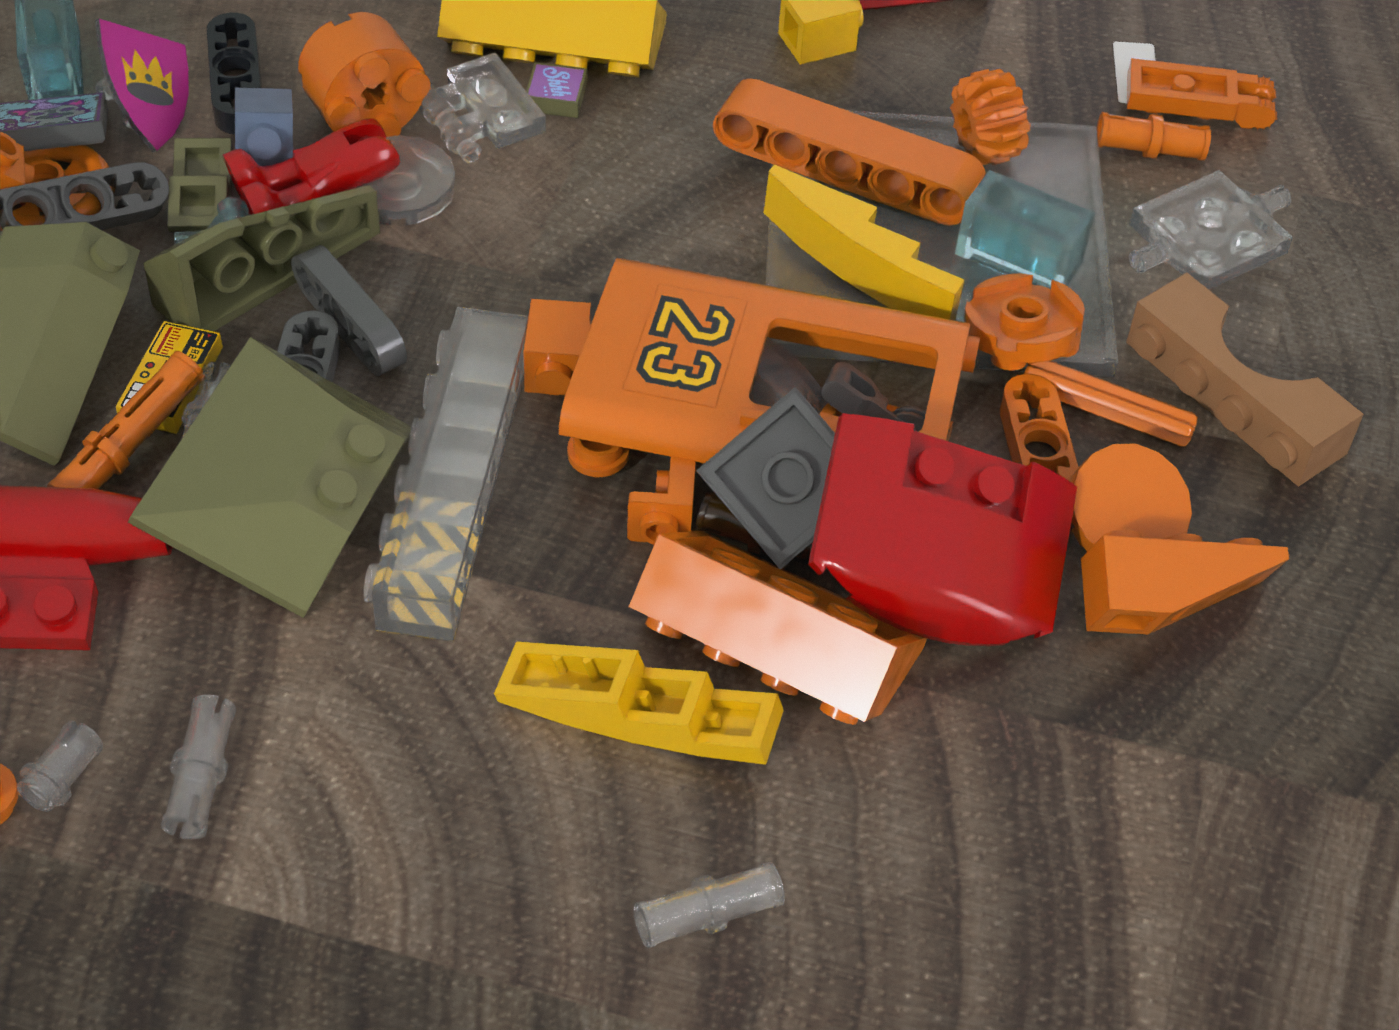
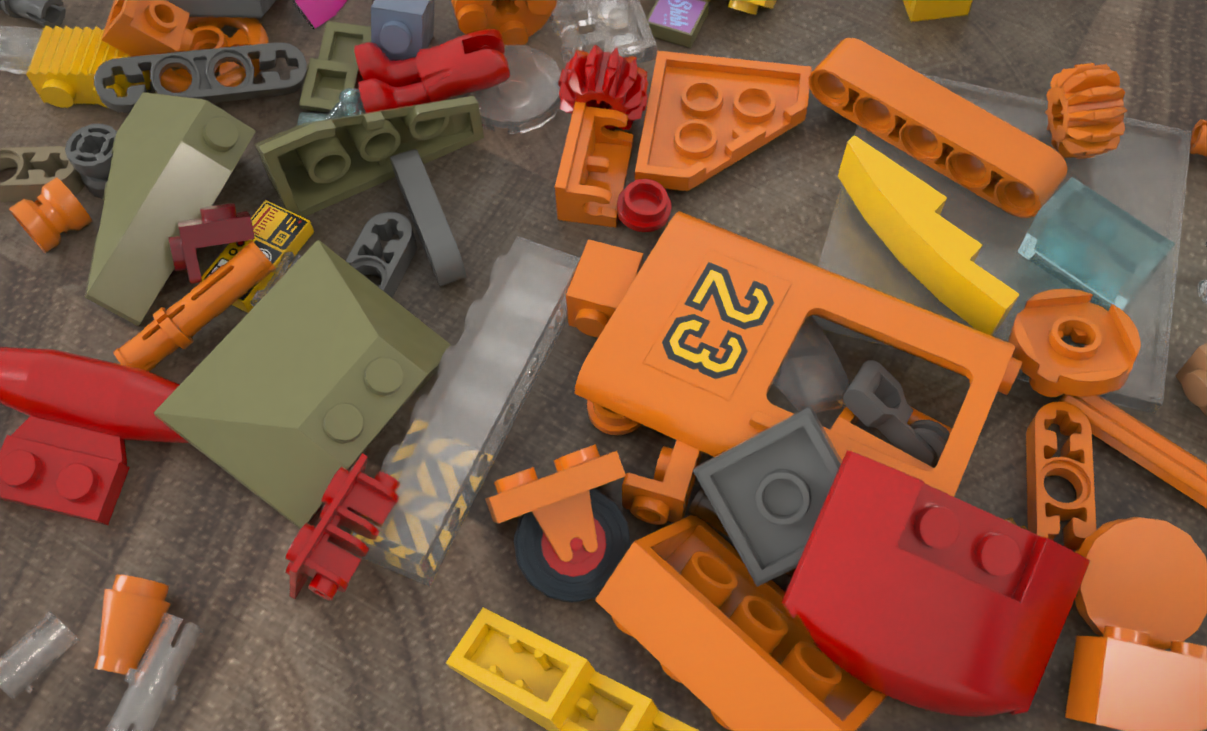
camera: 20 degrees right, 10 degrees up
(131, 342) = (216, 226): none -> dark red bracket
(155, 716) = (129, 622): none -> orange cone
(363, 583) = (311, 549): none -> red hinge
(503, 163) = (604, 82): none -> red gear
(511, 240) = (593, 166): none -> orange hinge
(574, 267) = (644, 206): none -> red plate
(580, 549) = (566, 529): none -> plate
(622, 174) = (714, 113): none -> orange plate

